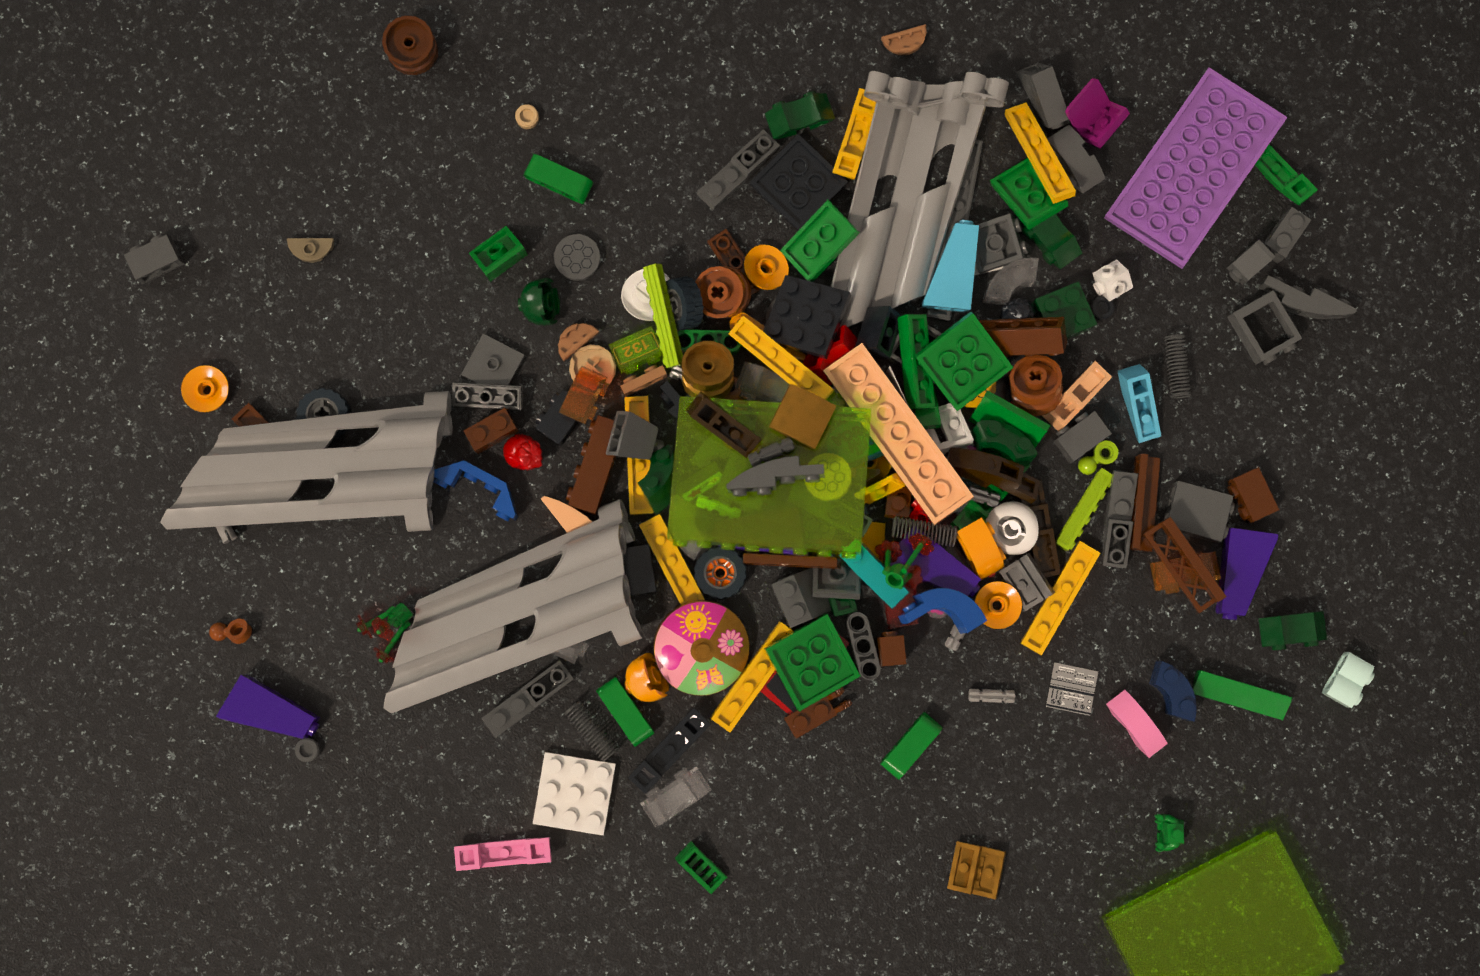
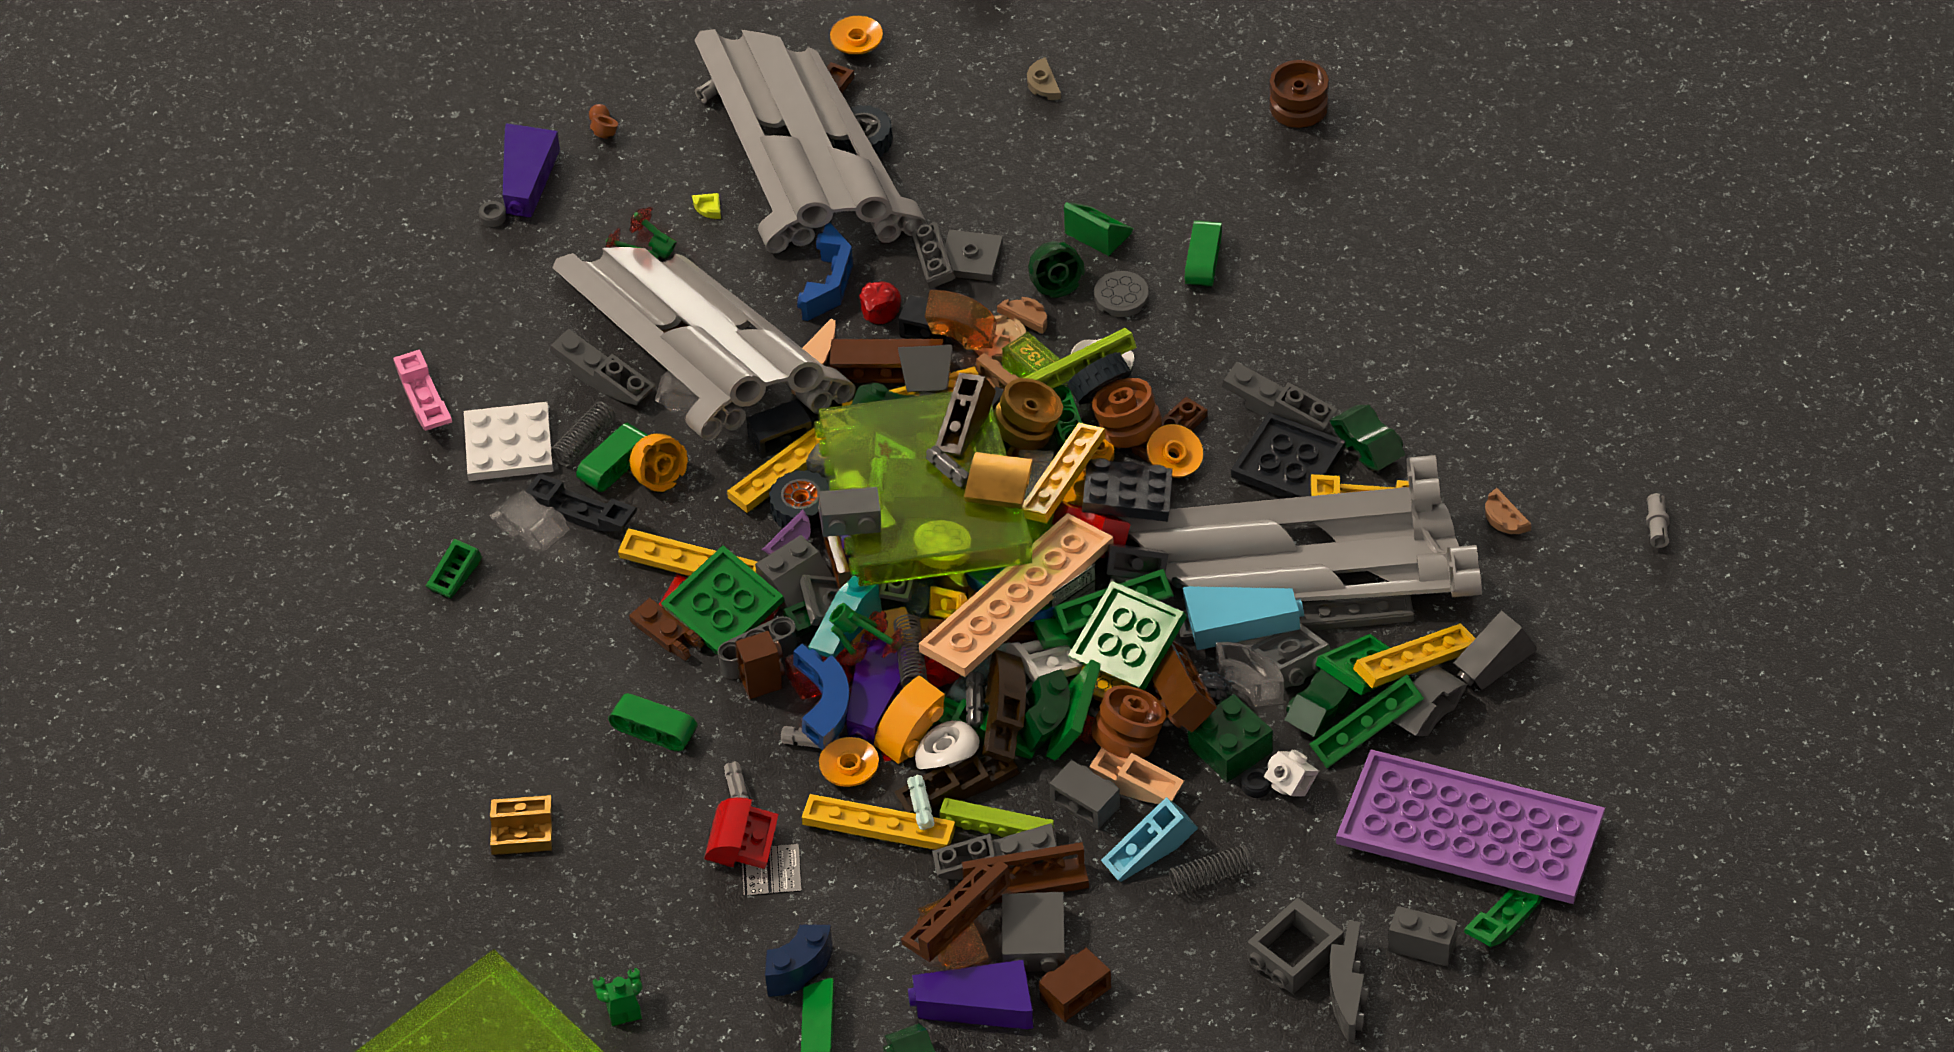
camera: 80 degrees right, 35 degrees down
(360, 565) = (707, 205): none -> neon yellow tile
(491, 431) = (894, 265): reddish brown brick -> none
(527, 116) = (1265, 214): tan tile -> none
(701, 647) = (709, 500): dish -> none
(759, 592) = (797, 526): none -> medium lavender plate
(764, 476) = (920, 467): dark grey slope -> none
(809, 544) = (849, 511): none -> dark grey brick
(819, 241) = (1223, 485): green tile -> none
(1028, 581) = (886, 782): dark grey plate -> none
(1045, 705) = (741, 834): none -> red brick
(1061, 562) = (920, 802): none -> light aqua axle
(1083, 211) = (1366, 721): none -> green slope
(1088, 465) = (1073, 823): lime plate -> none
(1094, 114) = (1493, 701): magenta bracket -> none
(1138, 723) = (742, 929): bright pink brick -> none
(1250, 262) = (1370, 904): dark grey slope -> none

